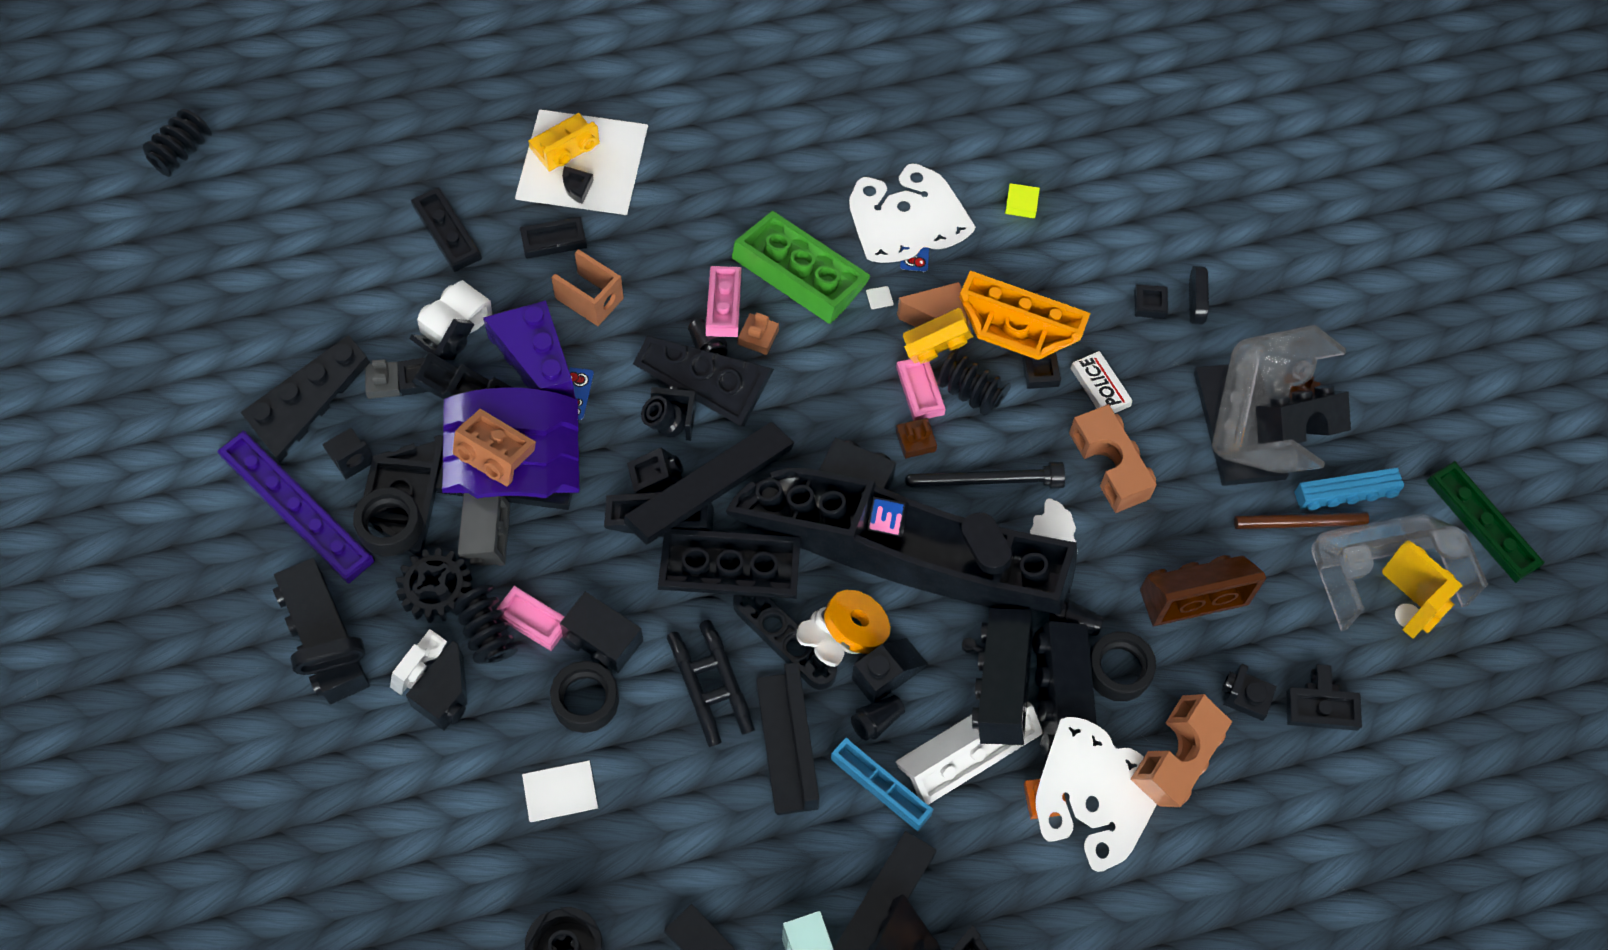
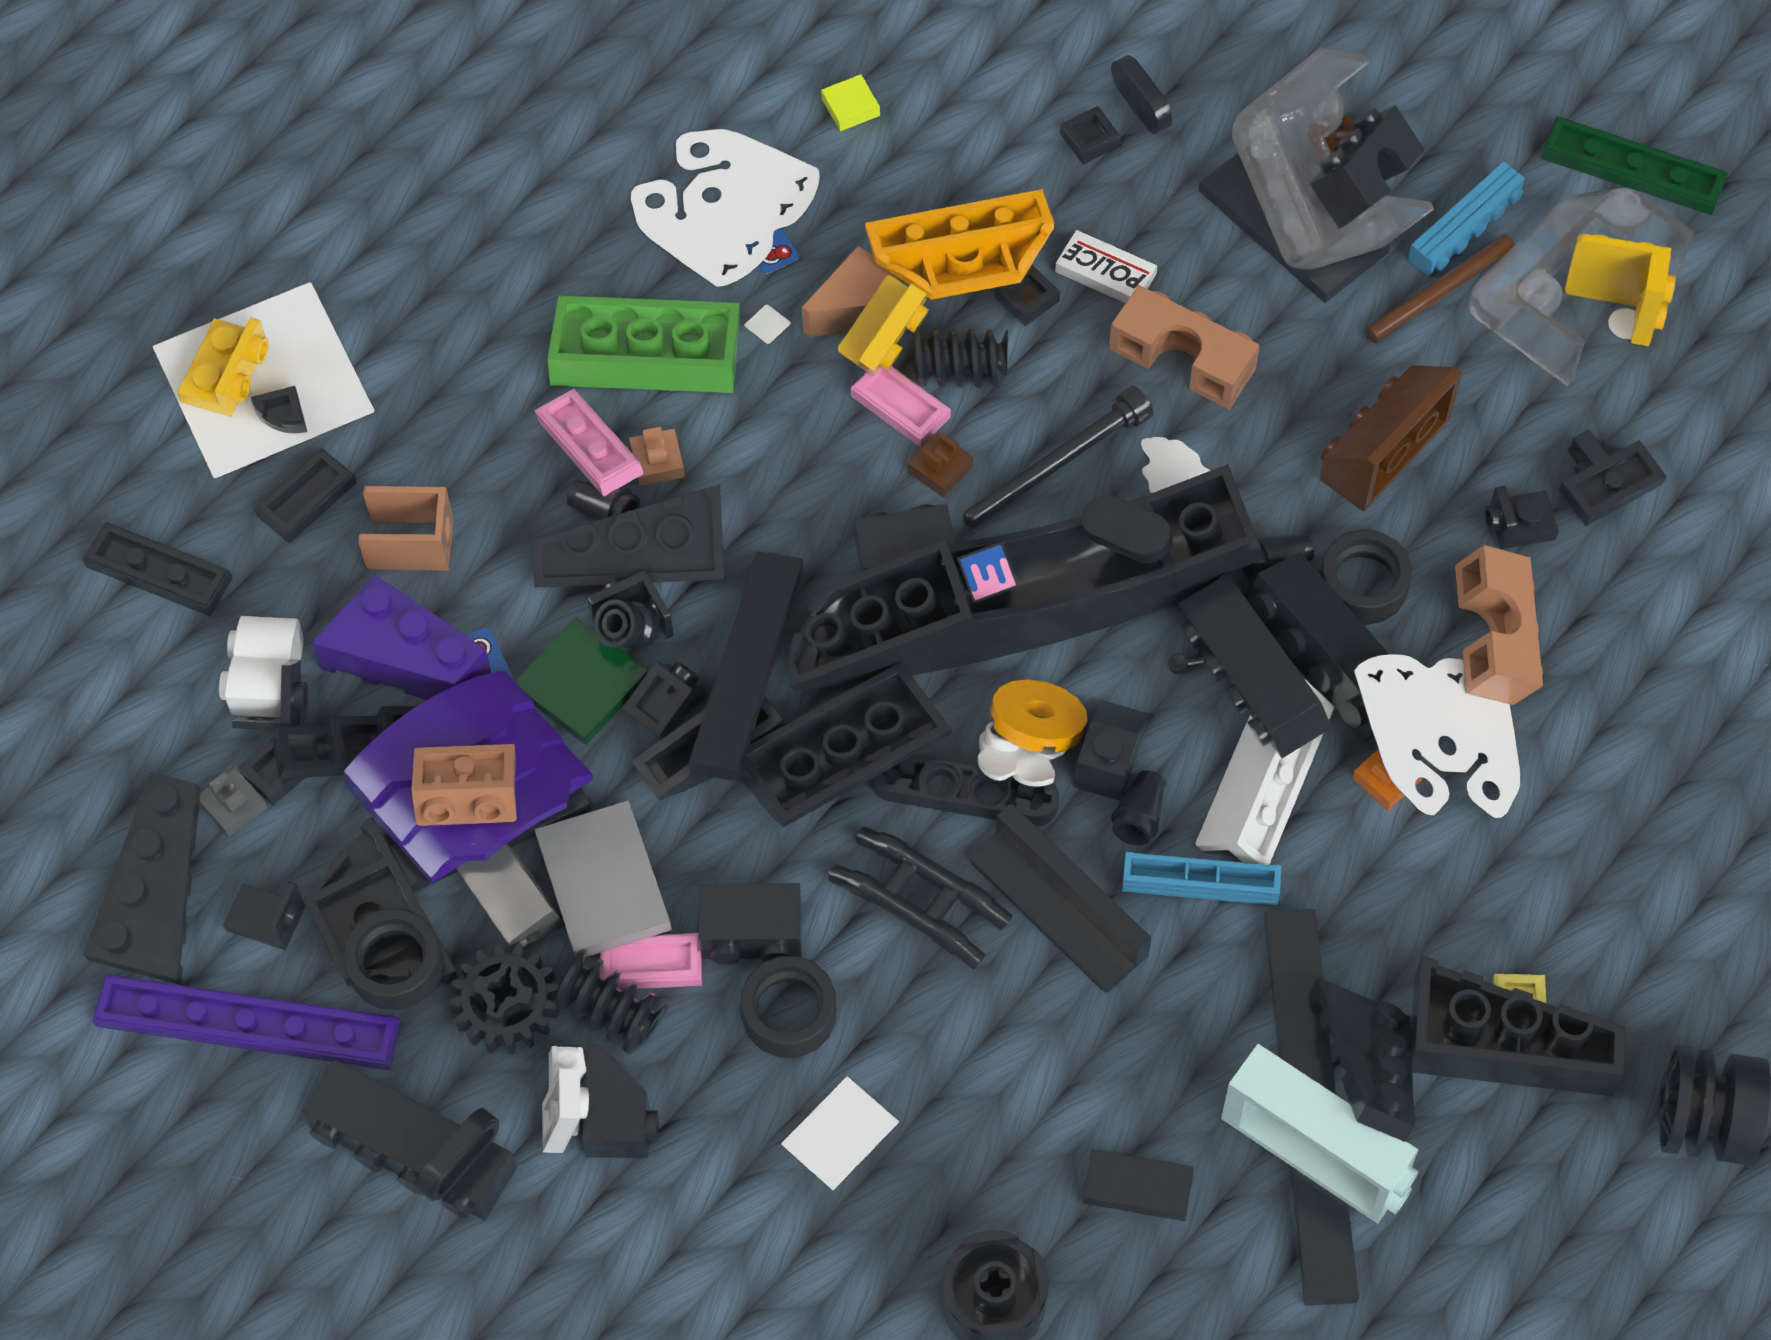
camera: 30 degrees left, 0 degrees up
(540, 553) = (603, 879): none -> light grey tile
(617, 432) = (581, 681): none -> dark green tile

